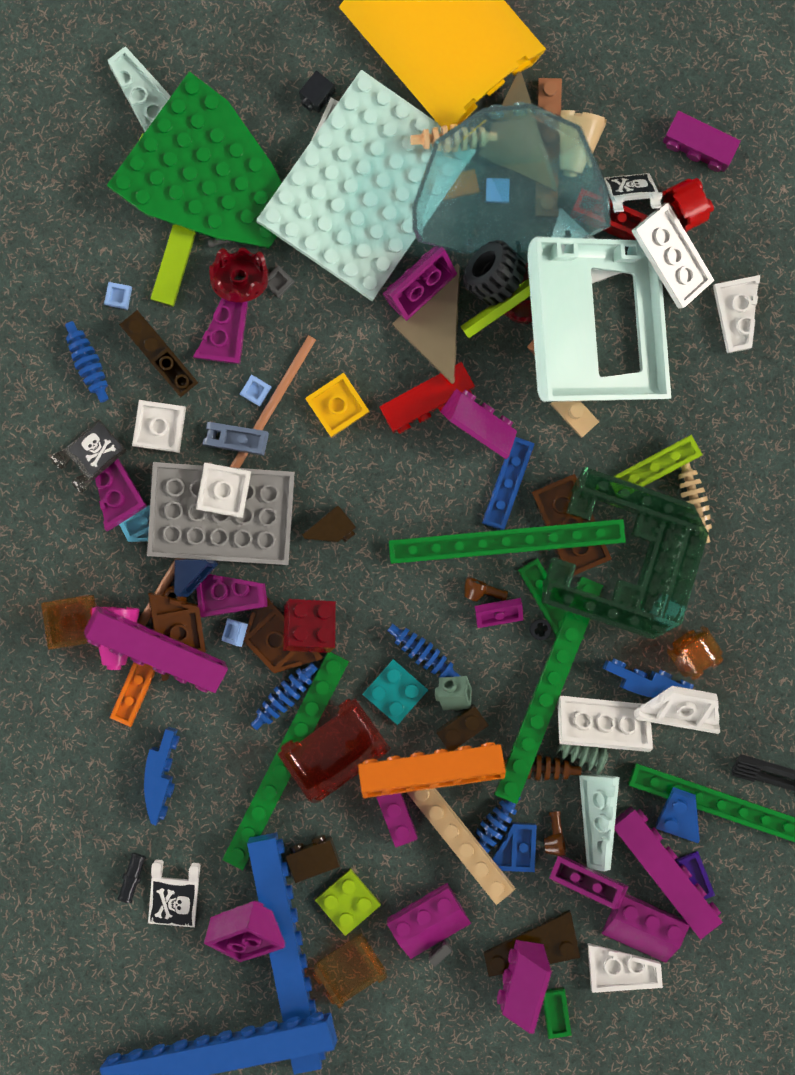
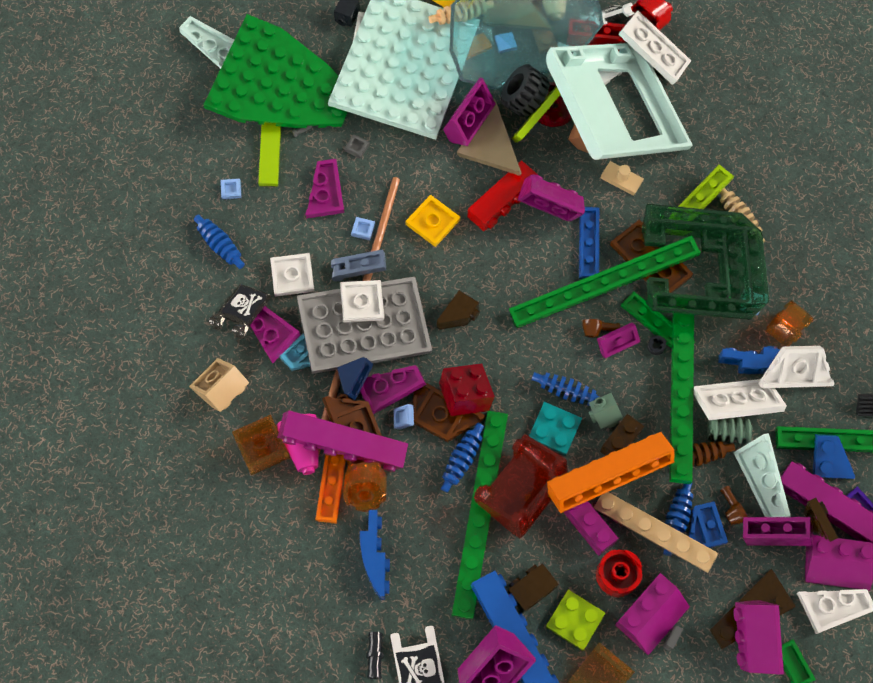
camera: 20 degrees left, 20 degrees down
(44, 536) = (219, 384): none -> tan slope
(158, 353) = (276, 220): dark brown slope -> none
(168, 703) = (365, 486): none -> clear orange brick
(243, 264) = (325, 146): dark red plate -> none
(402, 884) = (613, 562): none -> red brick
(631, 890) = (821, 525): none -> dark brown wing
(736, 310) = (715, 74): white wing -> none

